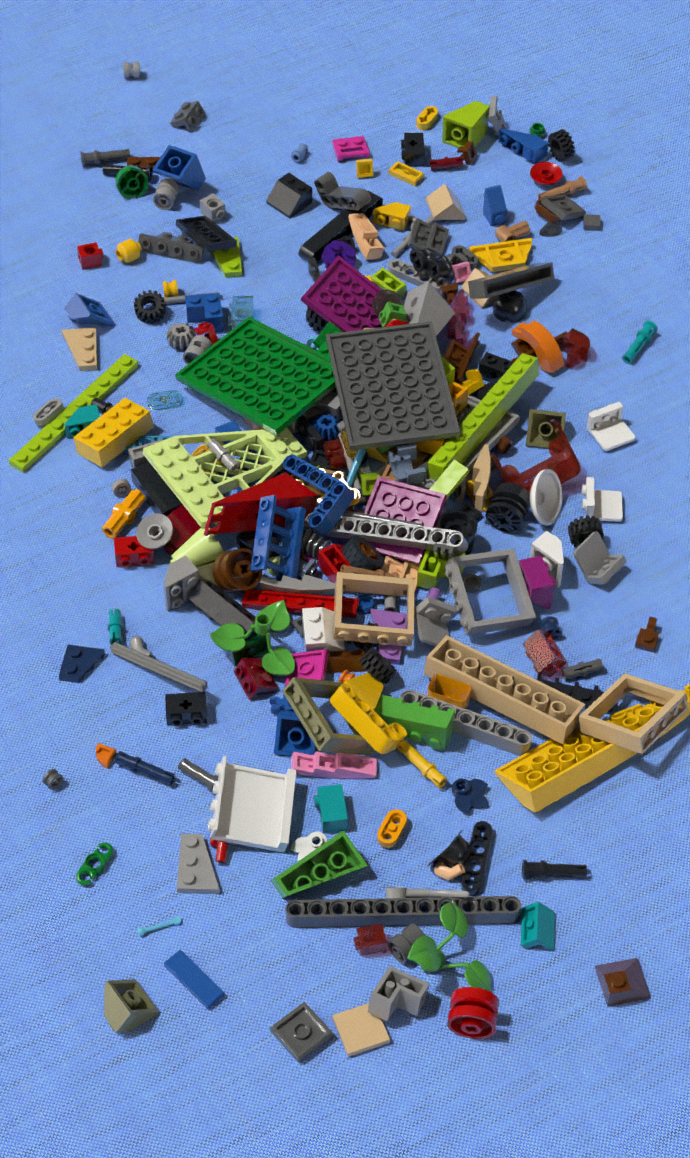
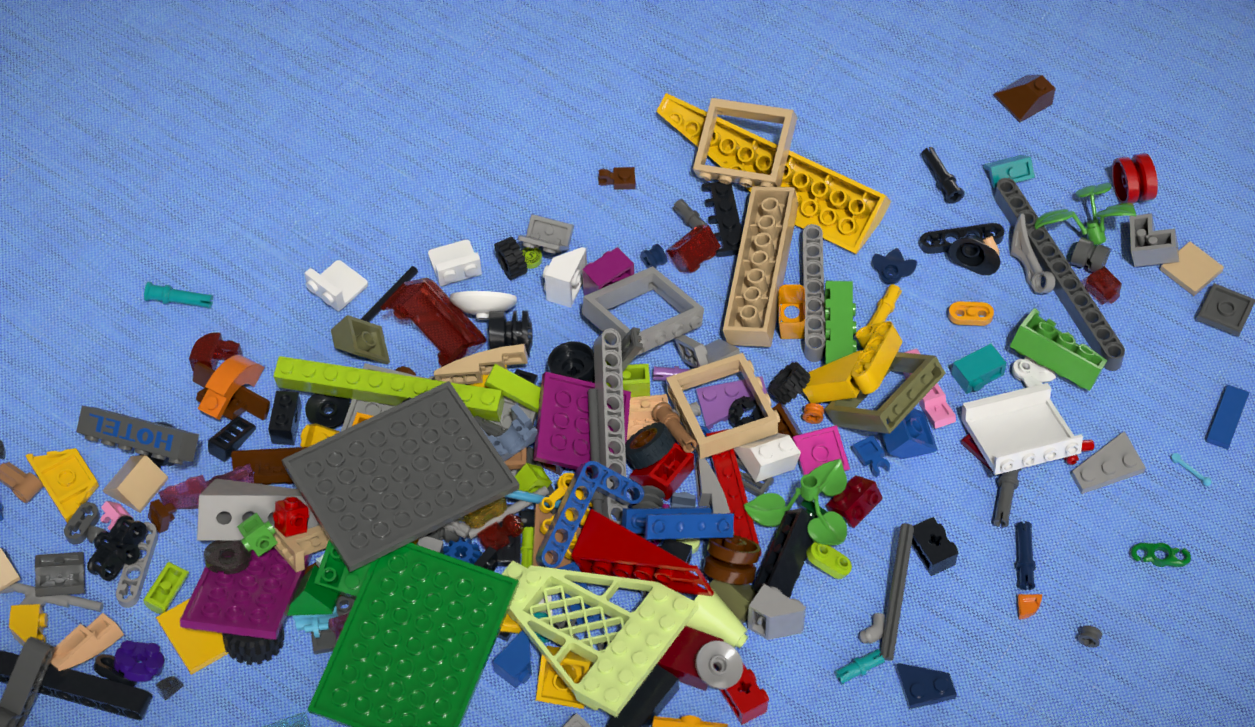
camera: 110 degrees left, 5 degrees up
(205, 637) = (829, 560): none -> lime plate
(223, 455) = (581, 623): light grey pin -> none
(500, 337) = (220, 448): none -> black slope
(586, 457) = (410, 273): none -> black bar

